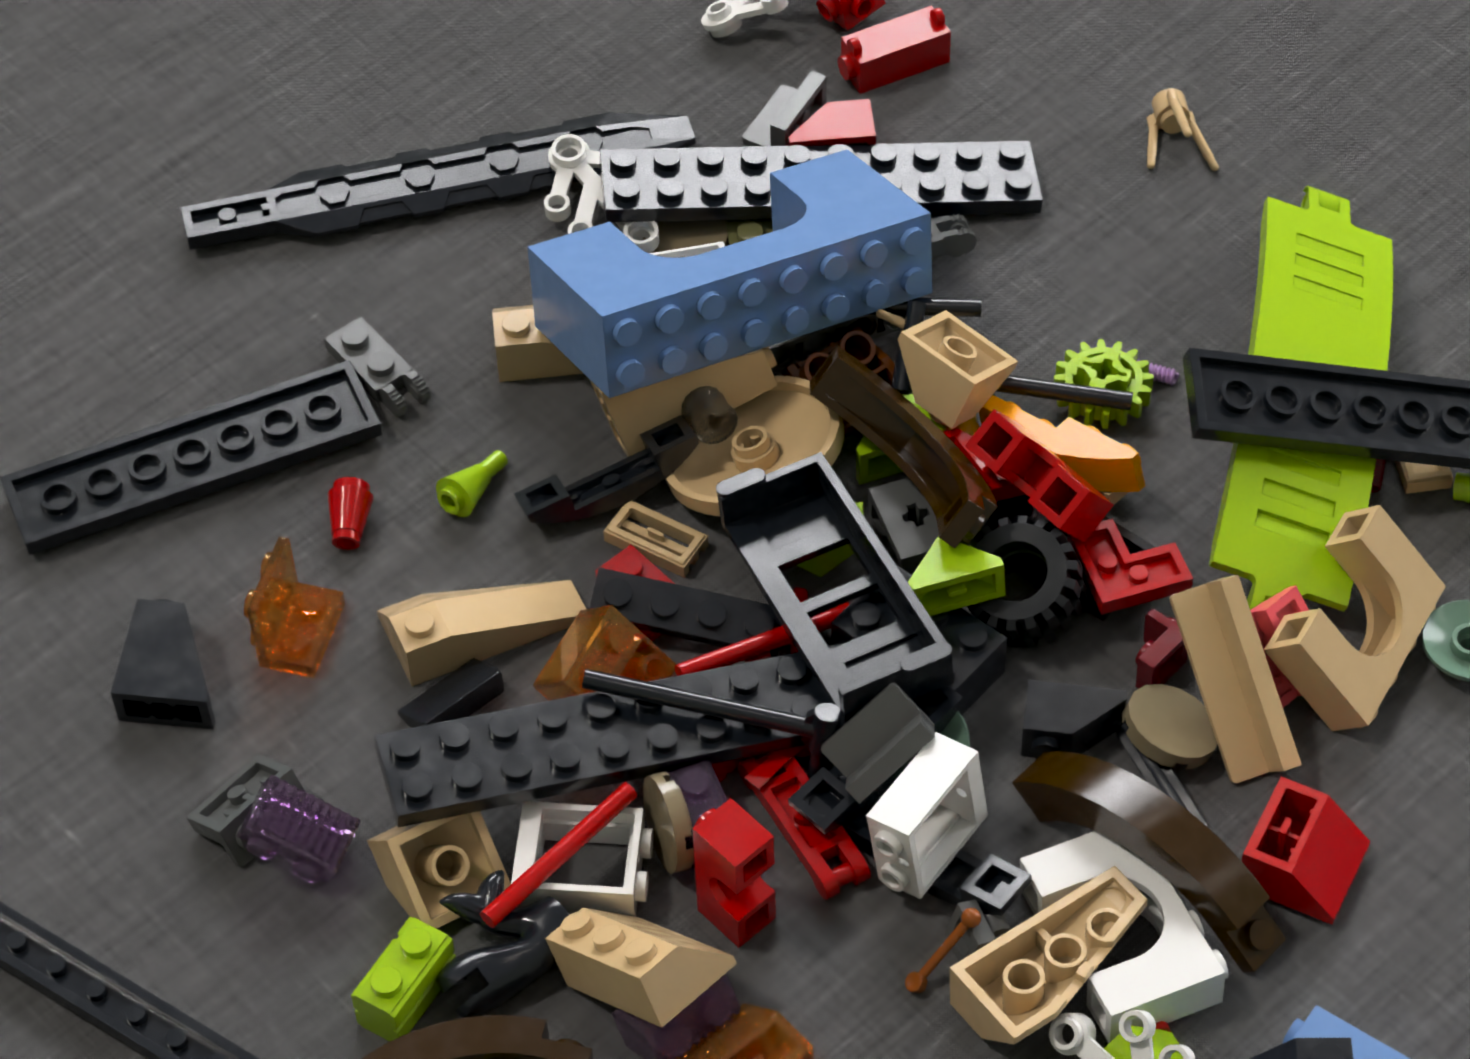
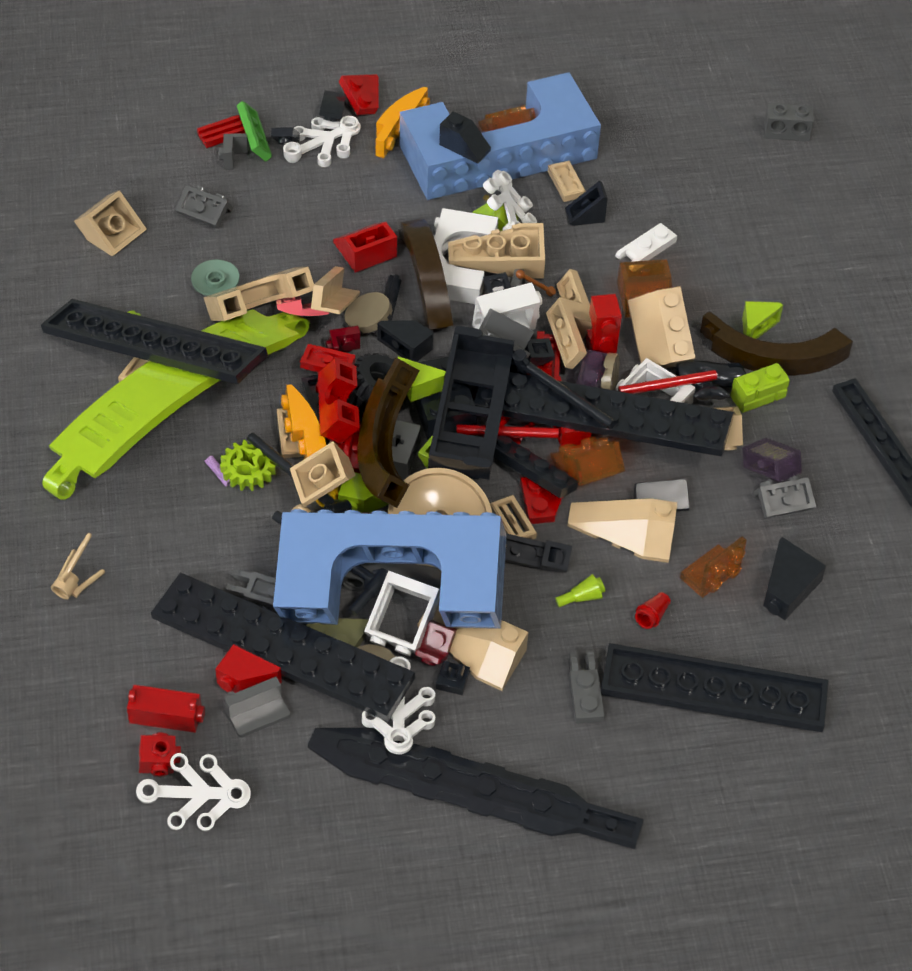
camera: 150 degrees left, 0 degrees up
(822, 913) = (570, 319): none -> tan bracket

